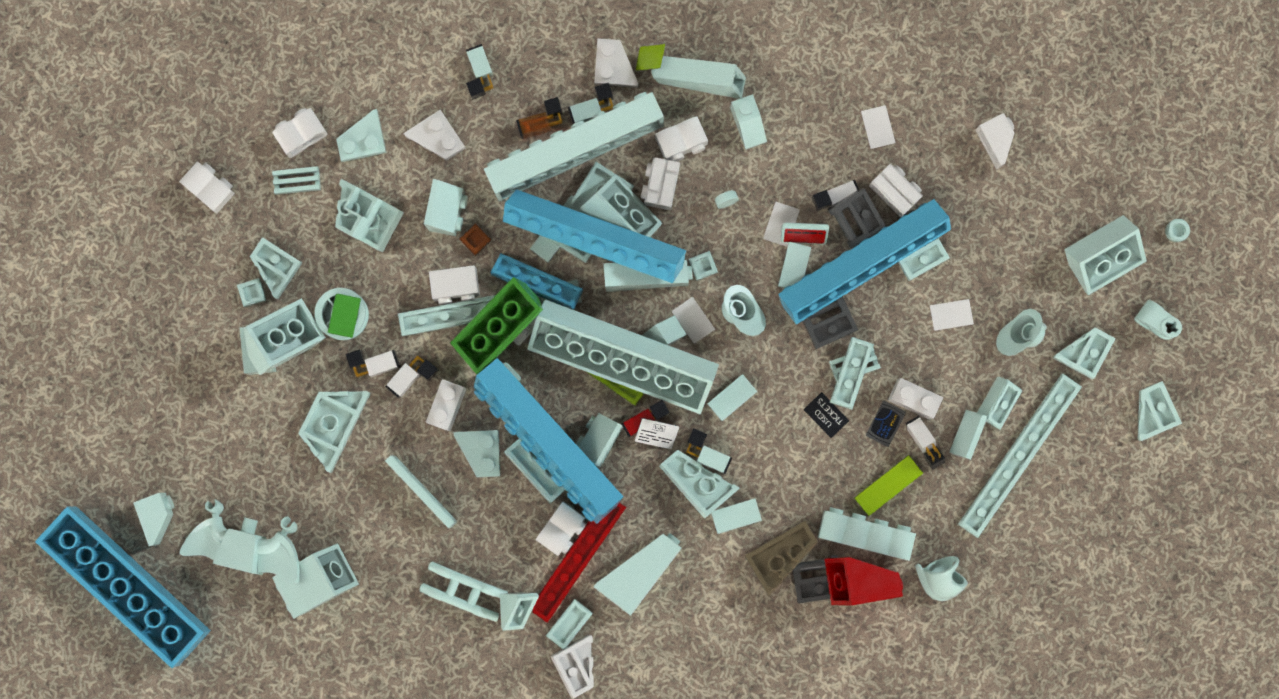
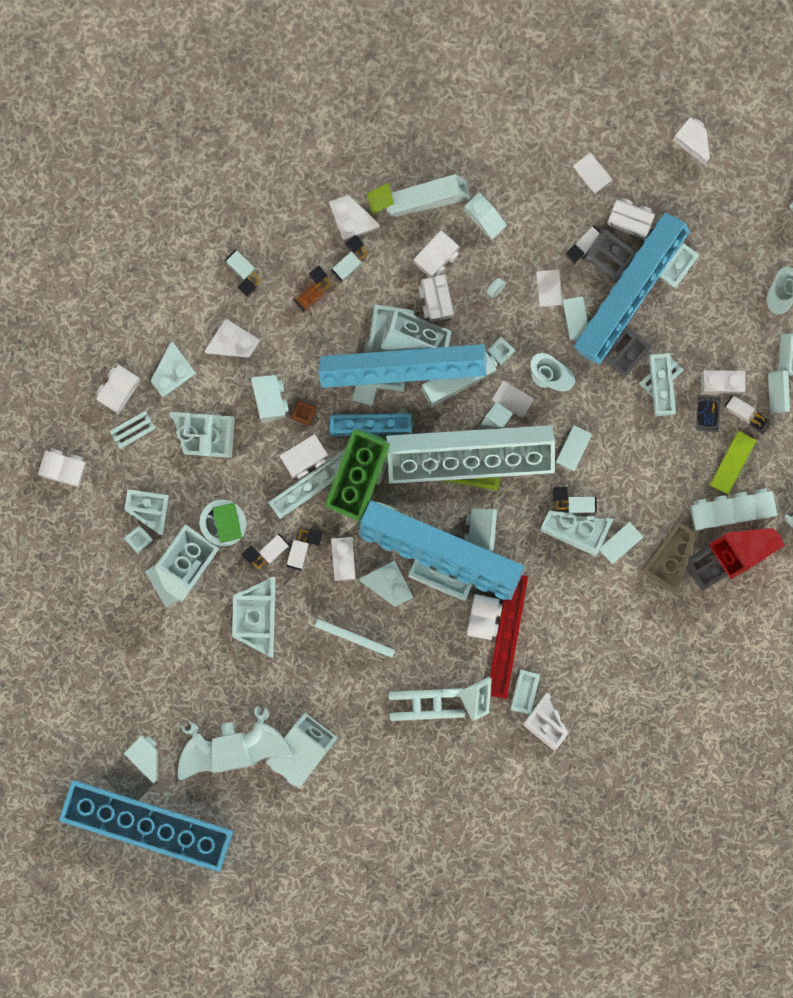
camera: 30 degrees left, 0 degrees up
(575, 145) = (352, 300): light aqua brick -> none
(637, 575) = (562, 628): light aqua slope -> none
(656, 433) = (526, 505): white sticker -> none
(658, 410) = (511, 496): piece -> none
(804, 233) = (572, 287): slope -> none
(826, 415) = (656, 428): black sticker -> none
(951, 314) = (721, 300): white sticker -> none

